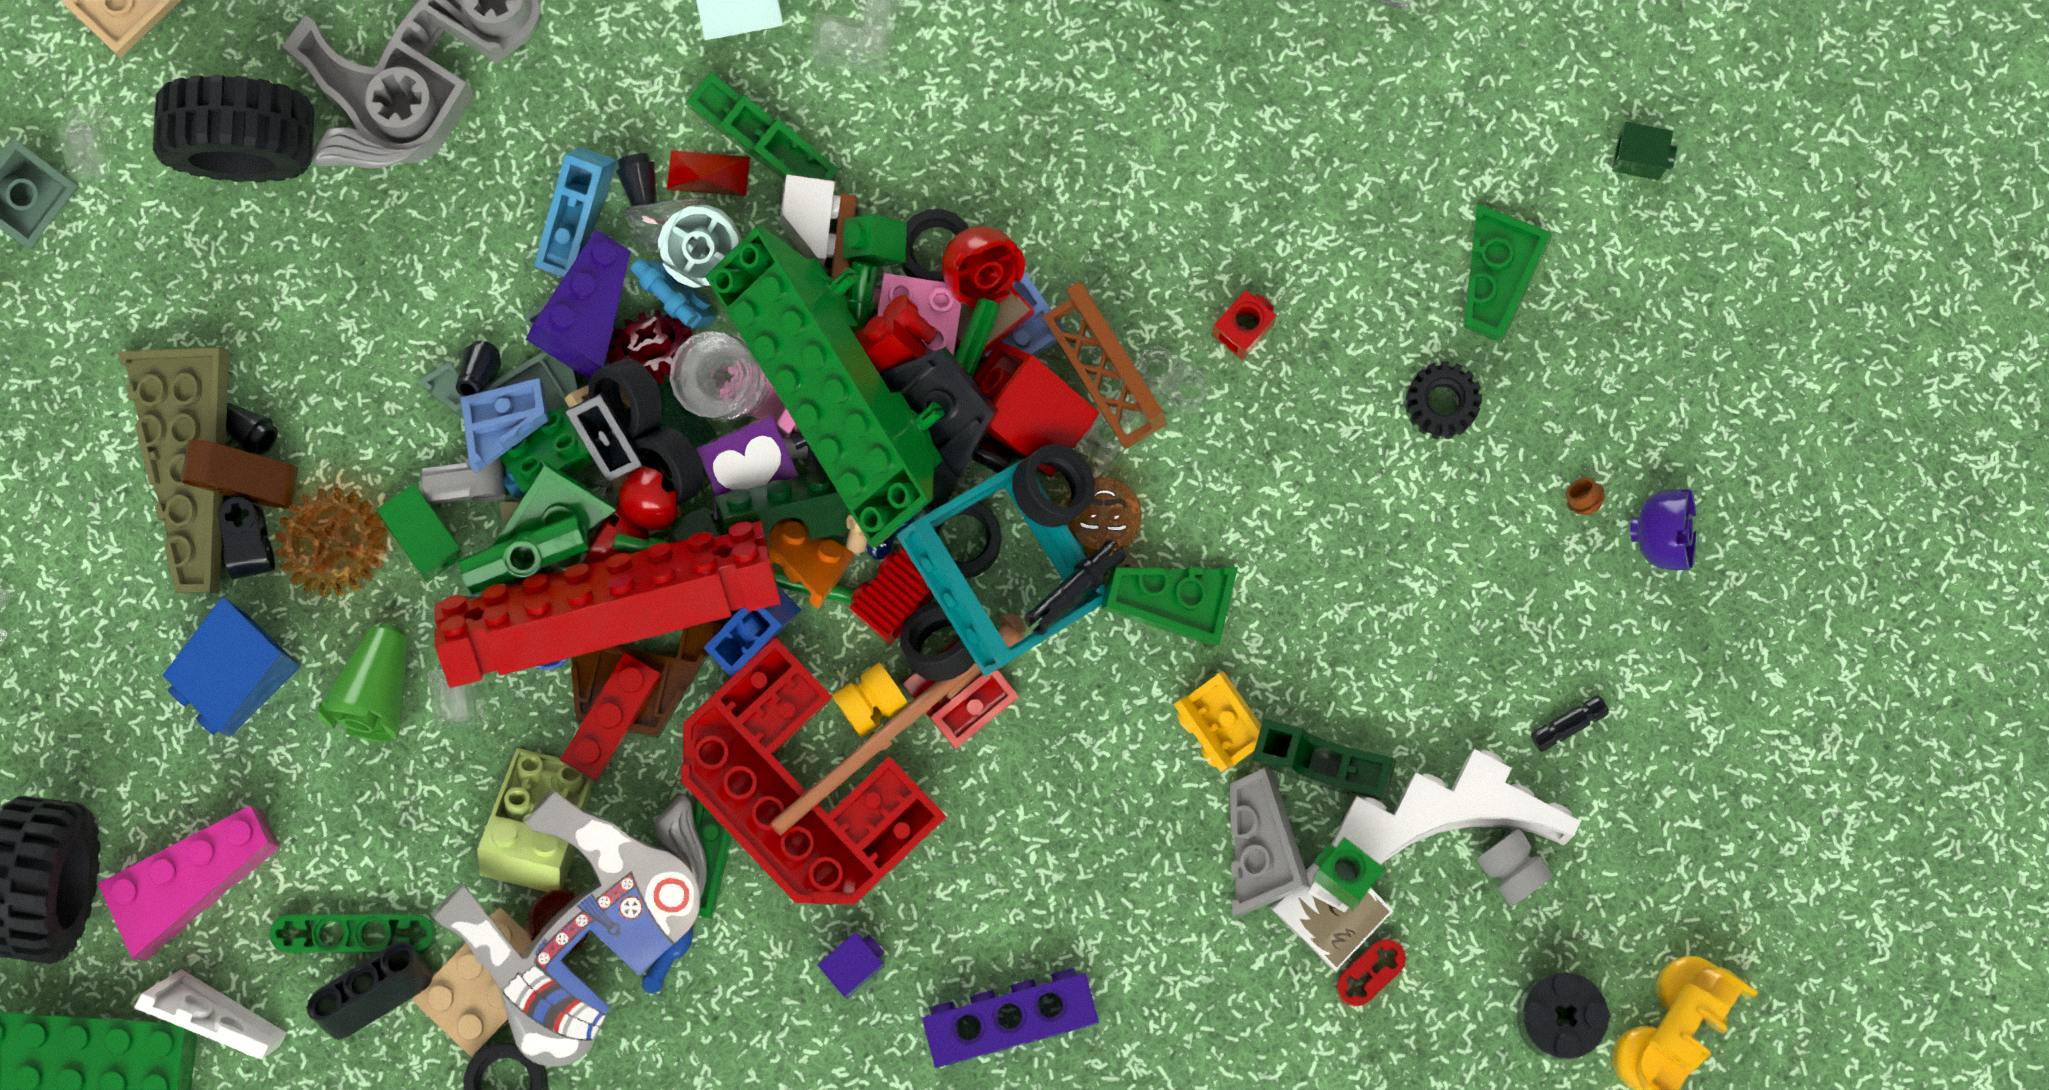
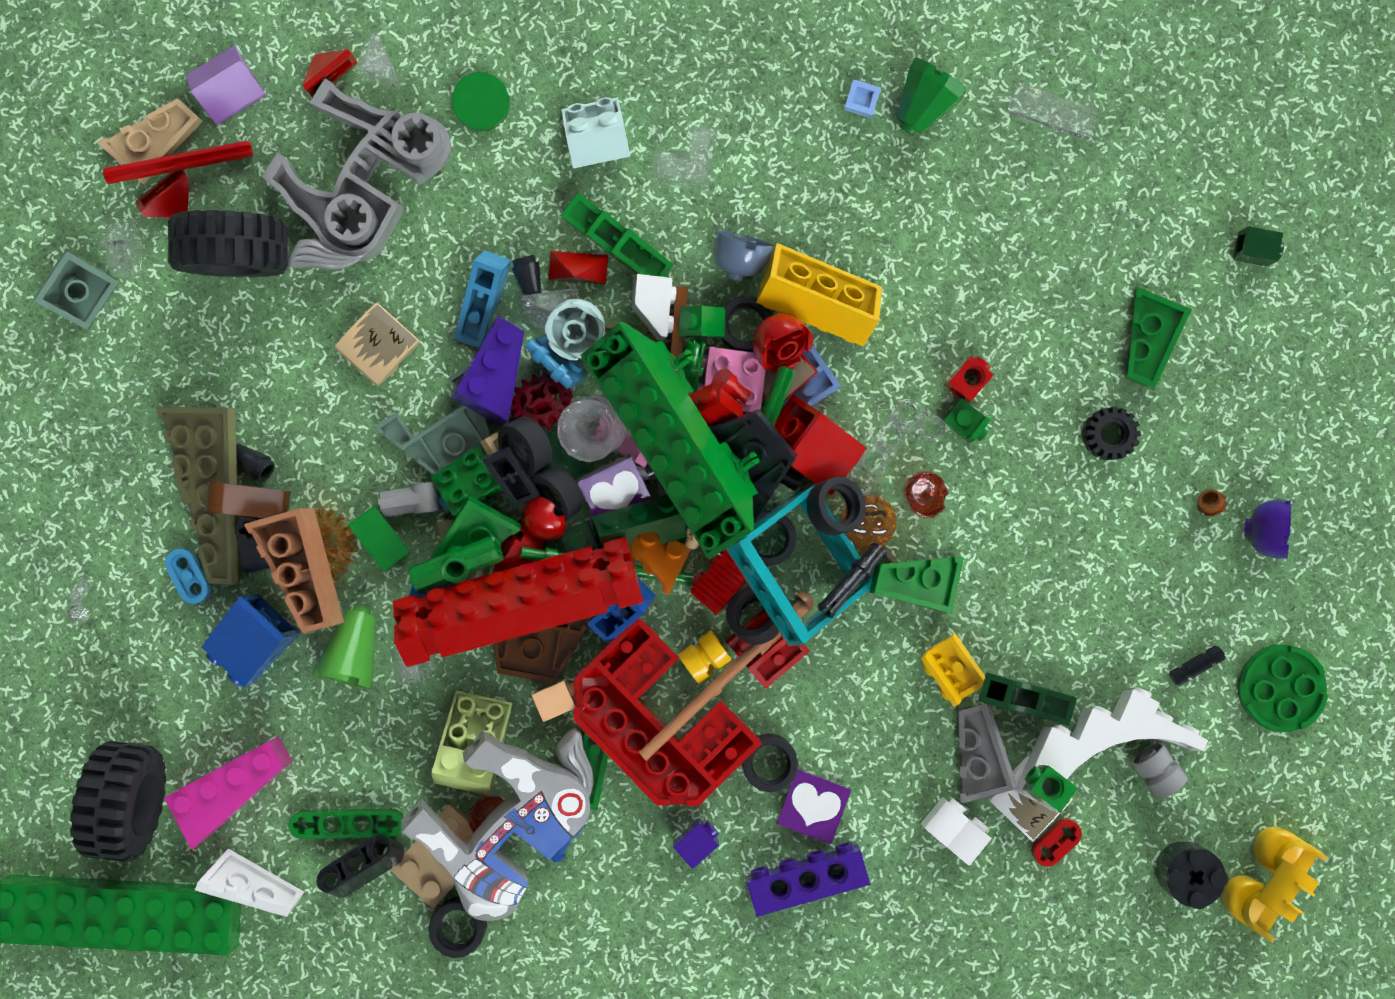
camera: 10 degrees left, 10 degrees up
(148, 584) = (187, 577): none -> dark azure plate
(149, 72) = (166, 196): none -> red slope
(169, 28) = (177, 162): none -> red axle
(308, 558) = (300, 566): none -> nougat wedge
(427, 271) = (377, 344): none -> slope
(477, 367) = (416, 417): black cone -> none
(502, 419) = (435, 458): medium blue wing -> none
(611, 717) = (521, 673): red plate -> none
(655, 758) = (554, 699): none -> light nougat brick
(929, 155) = (740, 254): none -> sand blue cylinder
(985, 870) = (788, 775): none -> black tyre
(1021, 916) = (813, 806): none -> tile
(1039, 209) = (820, 295): none -> yellow slope
(1117, 358) = (879, 408): dark orange fence -> none
(1182, 478) = (925, 494): none -> clear red hair
(1225, 951) = (956, 831): none -> white brick
(1243, 383) = (967, 421): none -> green bracket
(1693, 758) = (1283, 688): none -> green tile

